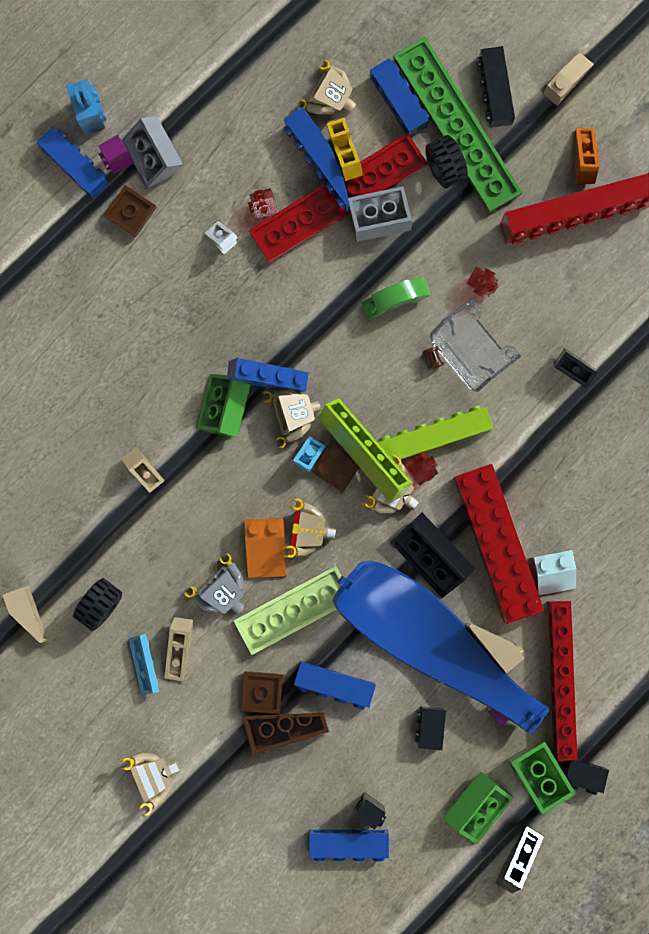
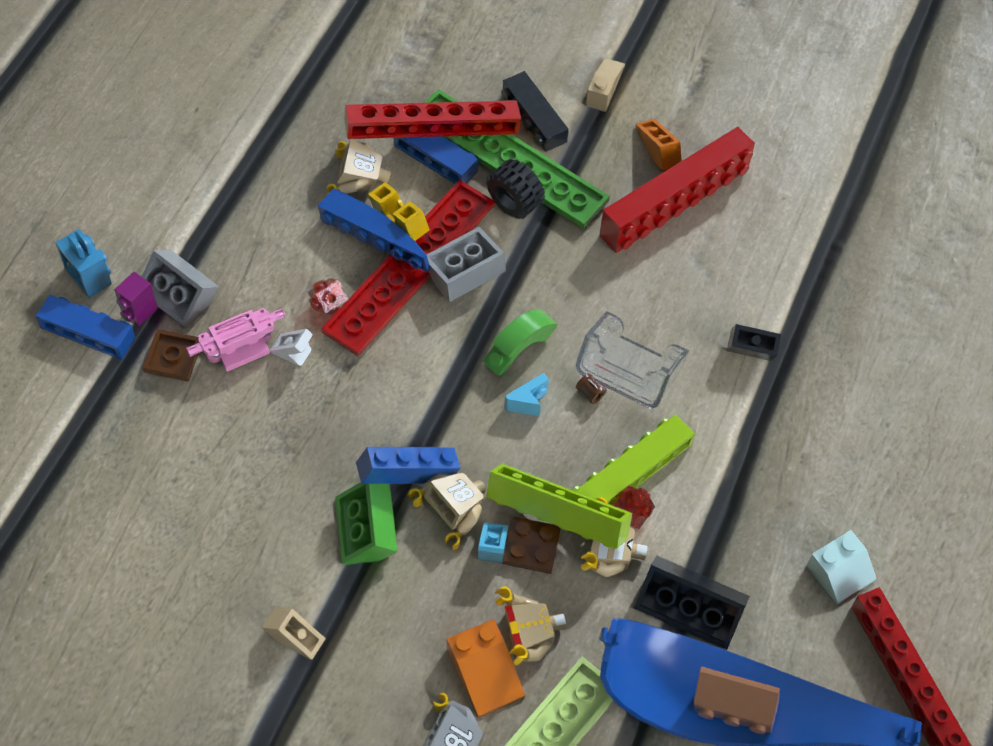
camera: 25 degrees left, 25 degrees down
(181, 217) = (238, 338): none -> bright pink piece
(378, 347) = (525, 397): none -> medium azure slope
(397, 75) = (431, 119): none -> red brick
(425, 645) = (736, 700): none -> nougat slope
(477, 279) = (609, 292): clear red brick -> none
(498, 544) = (763, 560): red brick -> none
(503, 651) = (823, 669): tan slope -> none

